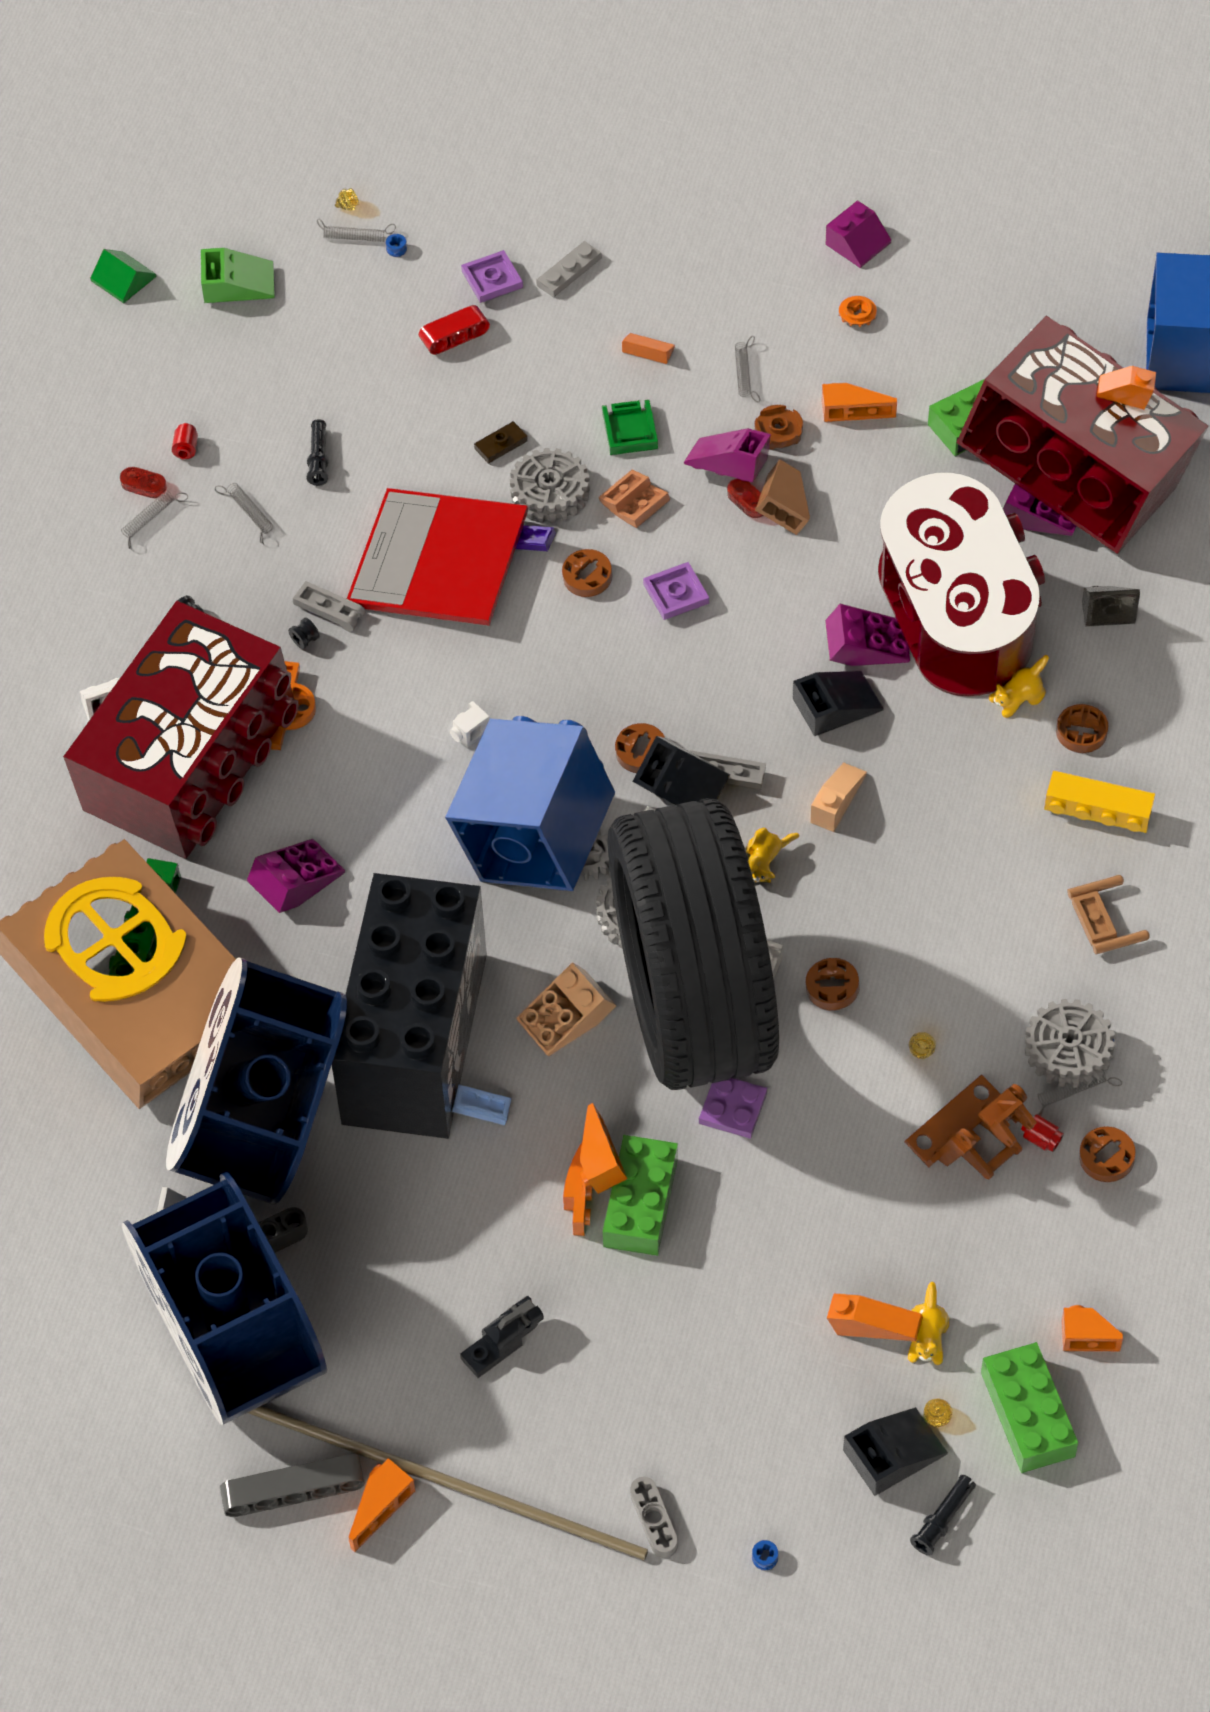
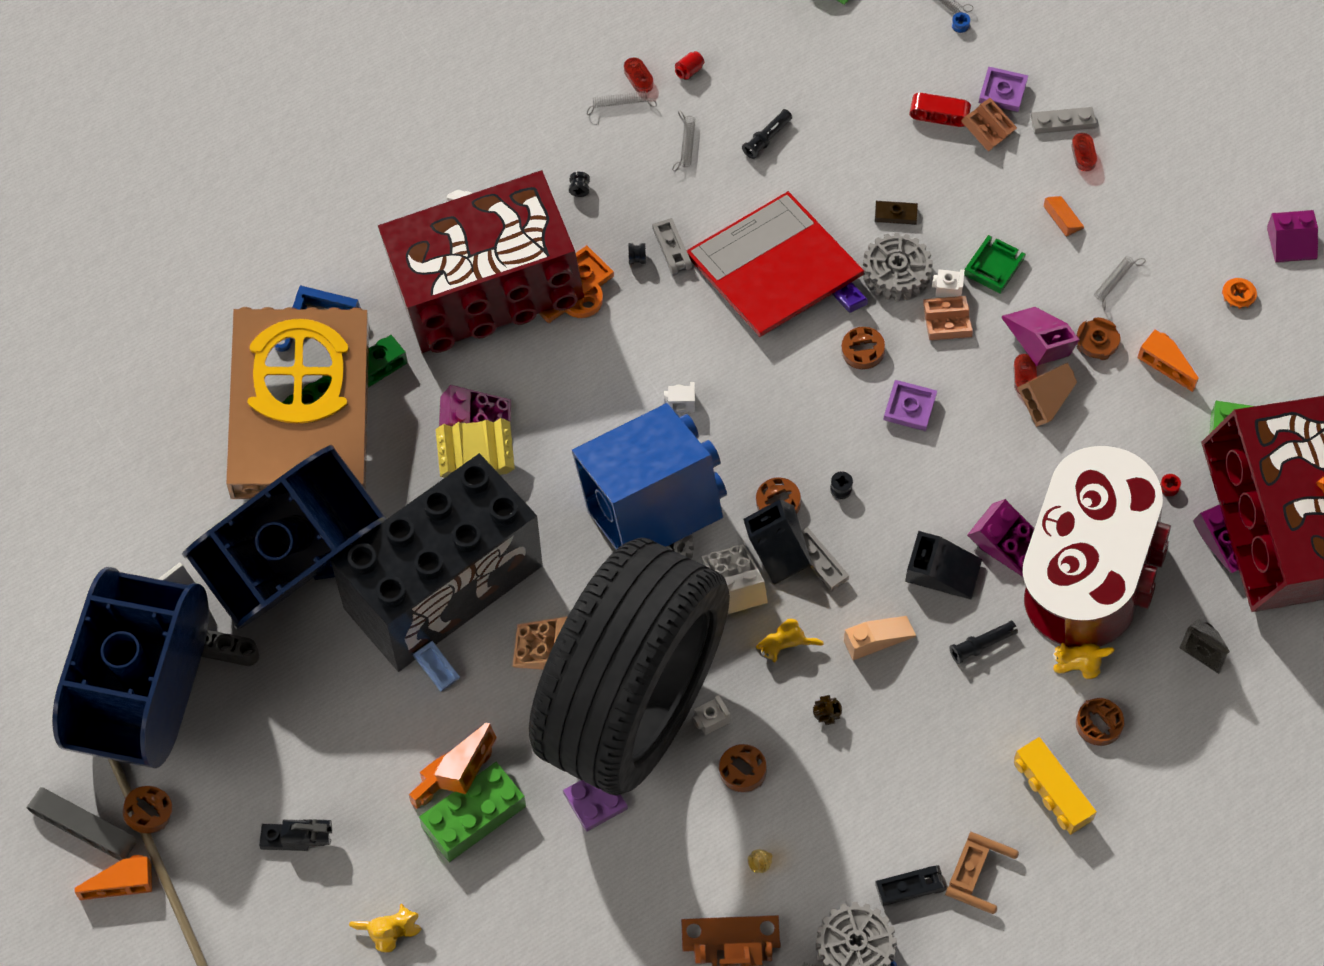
camera: 40 degrees right, 5 degrees up
(47, 875) = (321, 299): none -> blue hinge
(331, 898) = (464, 441): none -> light yellow slope
(342, 1436) = (141, 820): none -> dark orange piece
(510, 313) = (989, 124): none -> nougat slope
(608, 468) = (948, 283): none -> white brick
(614, 282) = (1084, 154): none -> clear red plate
(664, 1348) = (387, 929): none -> yellow animal
(679, 701) = (844, 489): none -> black wheel
(857, 883) = (827, 710): none -> dark brown gear
(924, 743) = (974, 645): none -> black pin
(1061, 969) = (910, 885): none -> black plate

